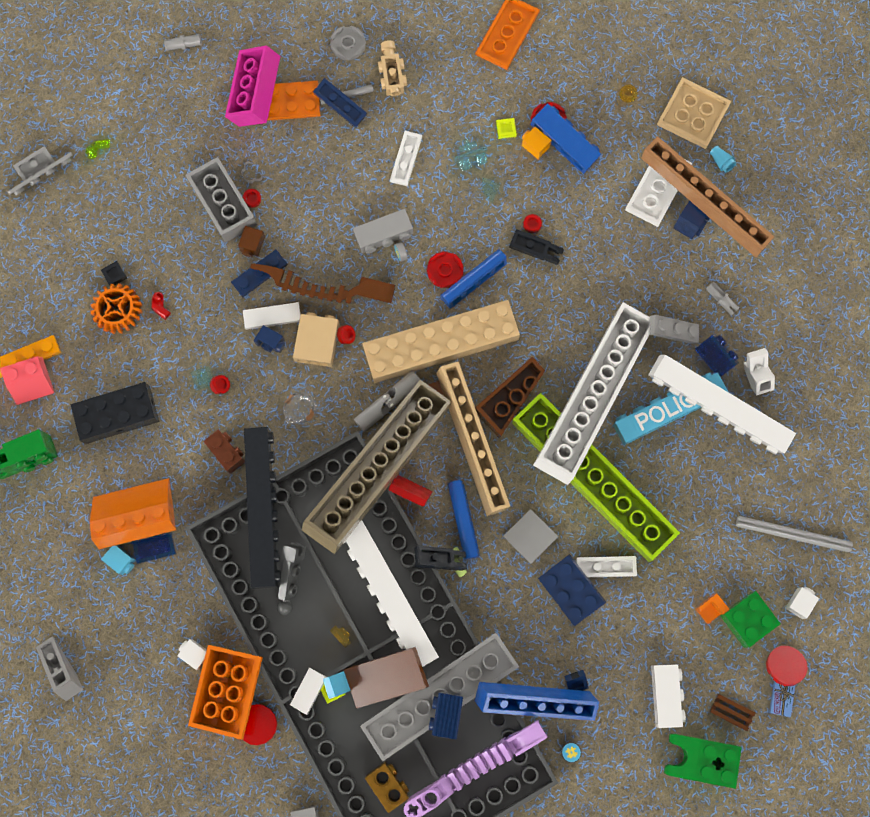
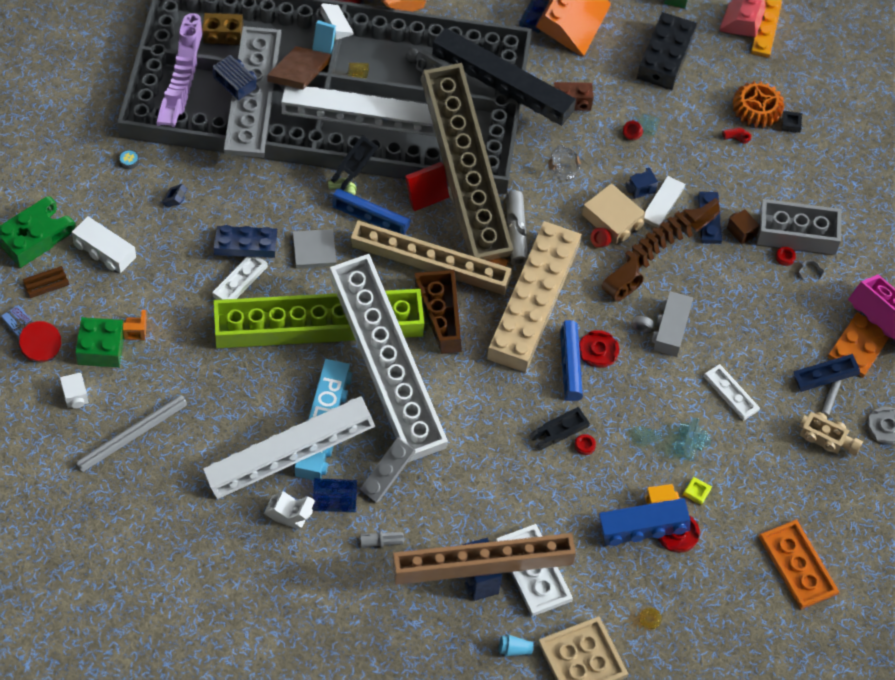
camera: 120 degrees right, 20 degrees down
(536, 701) = (187, 145): blue brick -> none

